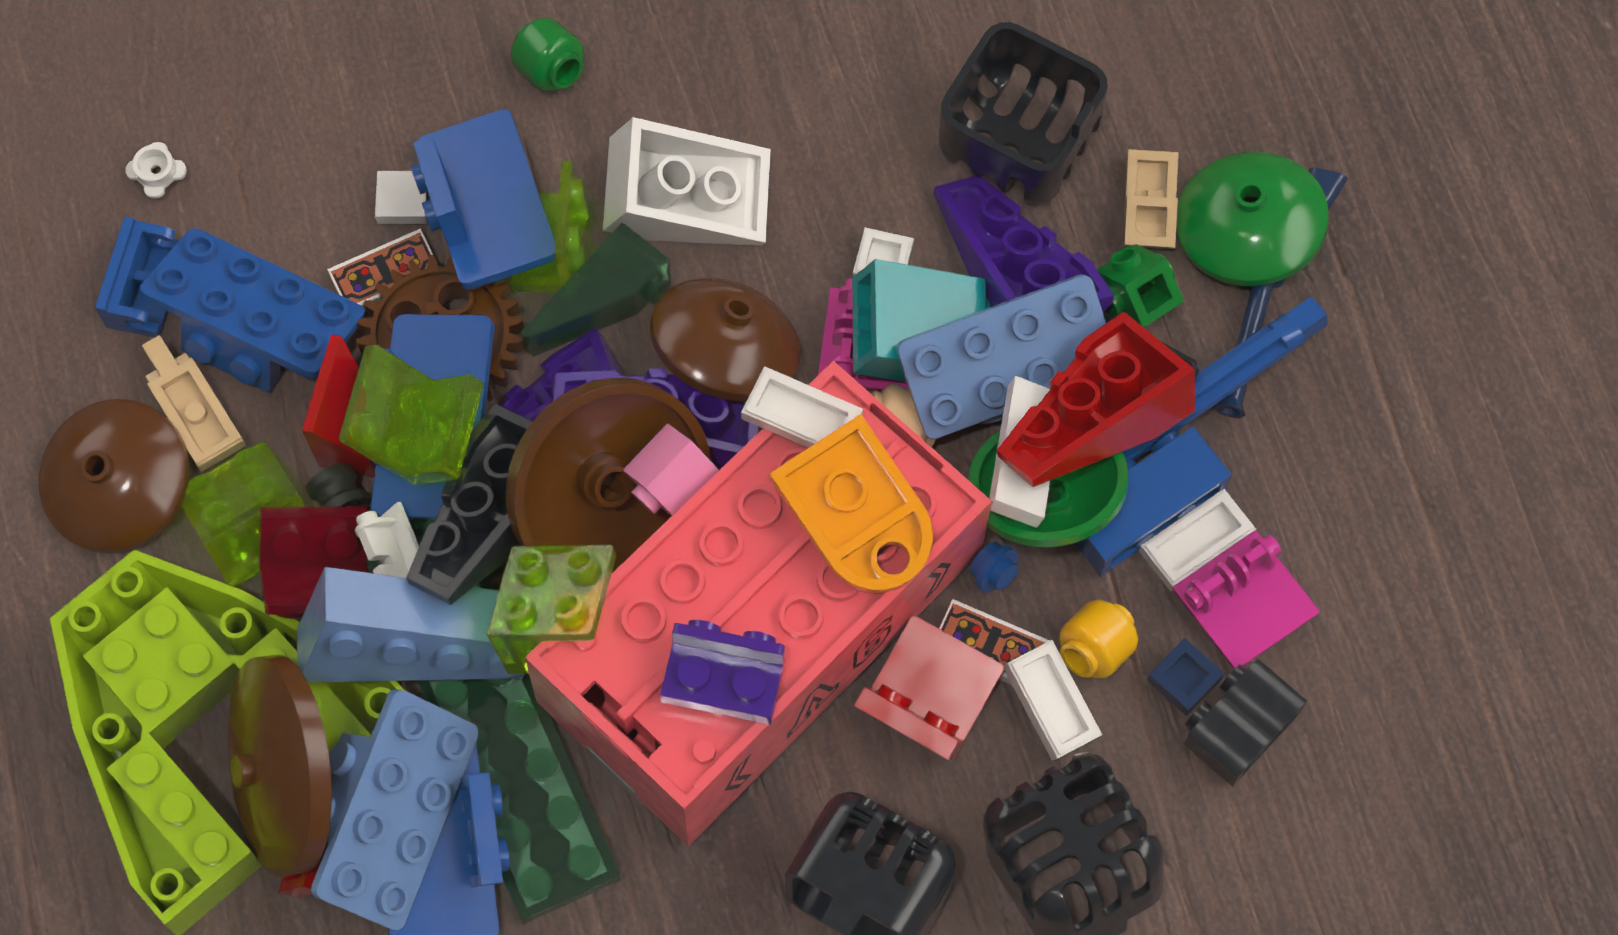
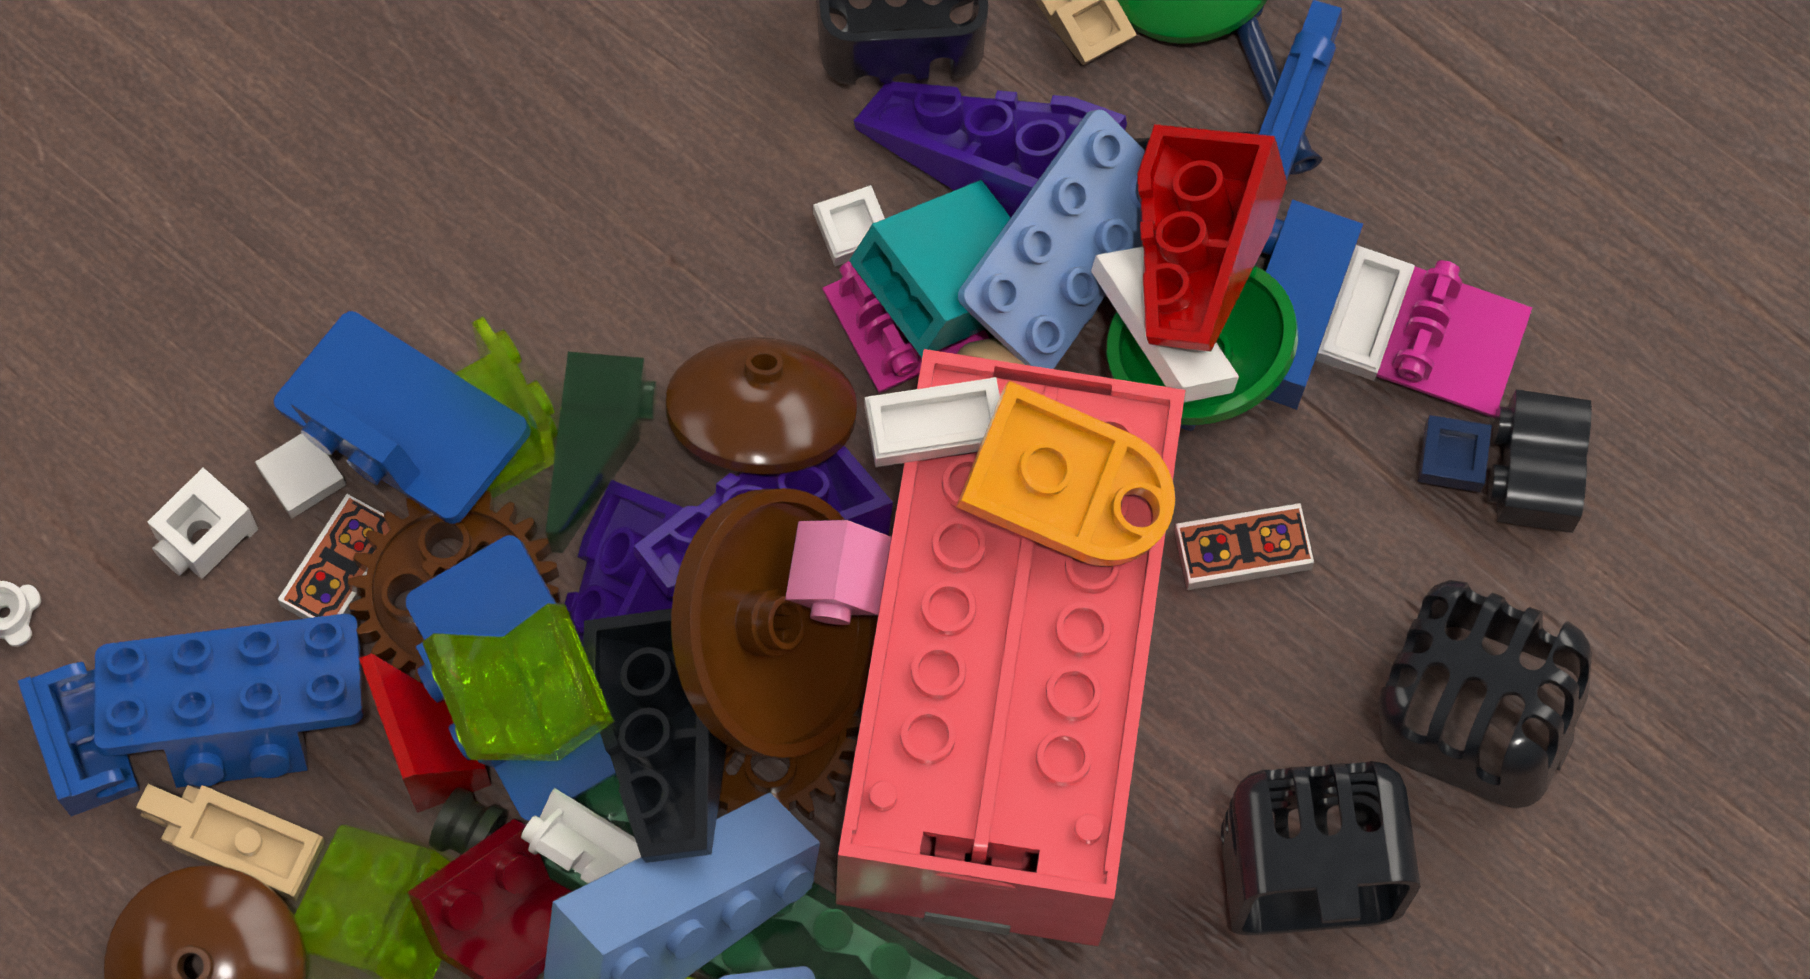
camera: 40 degrees left, 0 degrees up
(311, 190) = (197, 506): none -> white brick
(547, 55) = (352, 227): green head -> none
(548, 597) = (815, 777): clear neon green bracket -> none
(686, 185) = (597, 275): white slope -> none
(723, 671) = (1055, 733): dark purple bracket -> none
(931, 688) = (1224, 624): bracket -> none
(994, 567) = (1196, 465): blue plate -> none
(1052, 700) = (1346, 560): white tile -> none
(1098, 639) = (1347, 471): yellow head -> none
(1141, 284) = (1140, 86): green brick -> none

